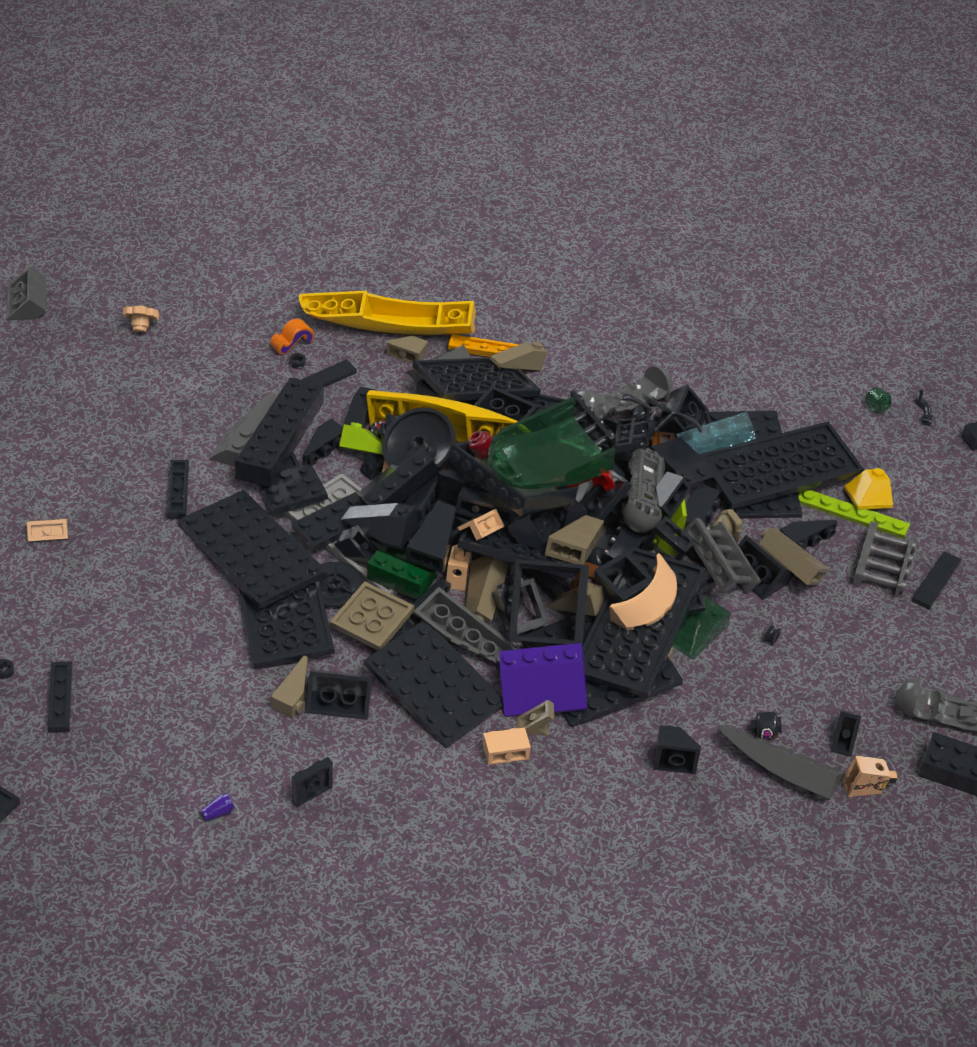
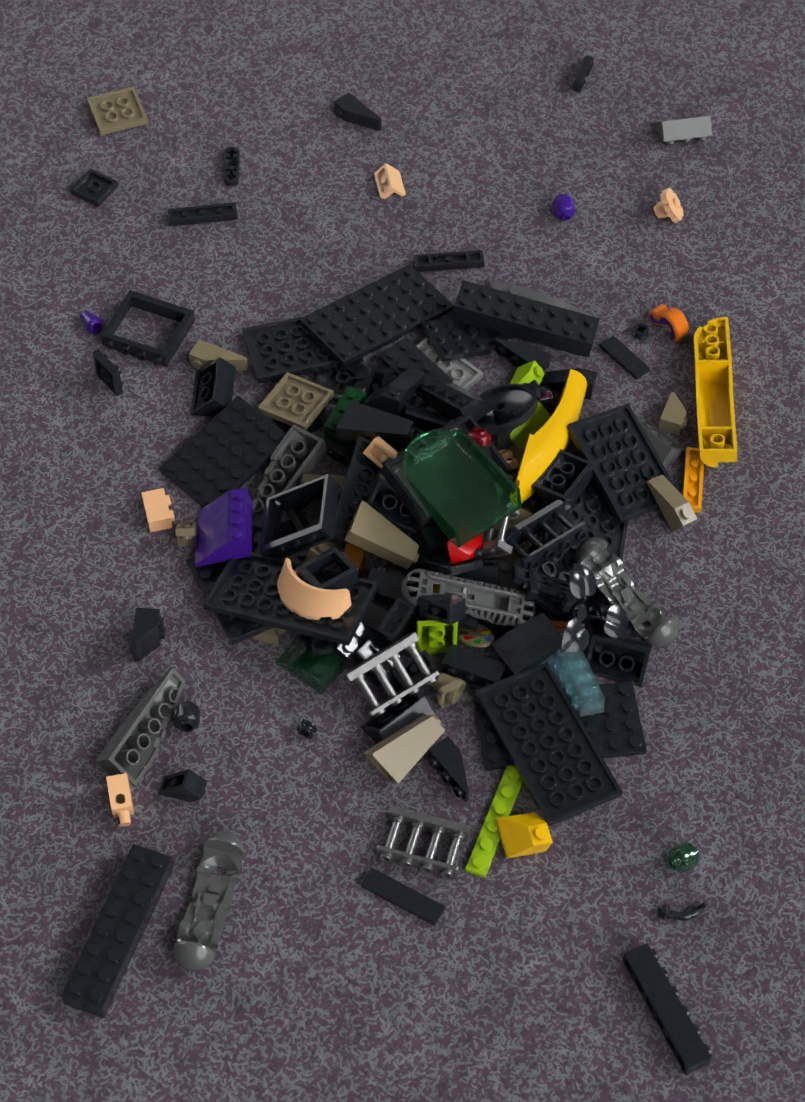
camera: 90 degrees right, 10 degrees up
(120, 393) = (563, 207): none -> dark purple head
(193, 761) = (155, 306): none -> black window

